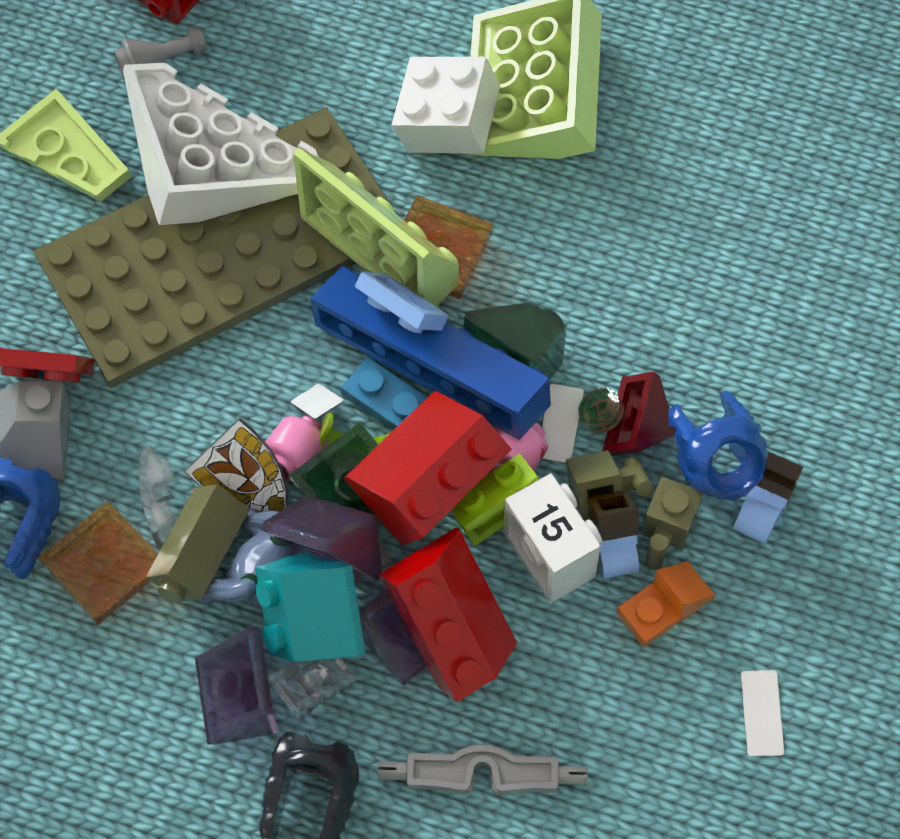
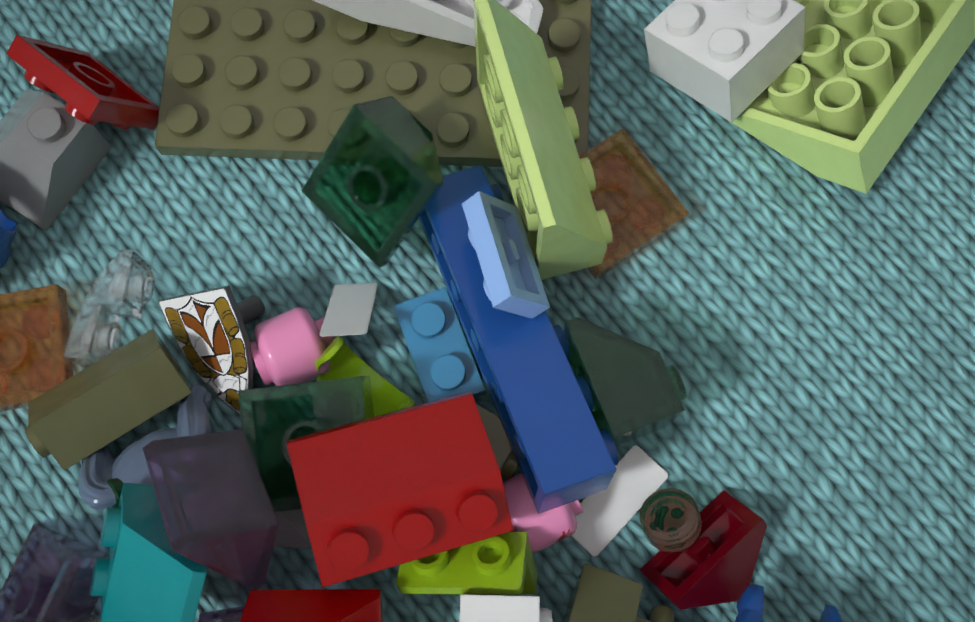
camera: 35 degrees right, 10 degrees up
(285, 309) = (377, 176): none -> clear green slope

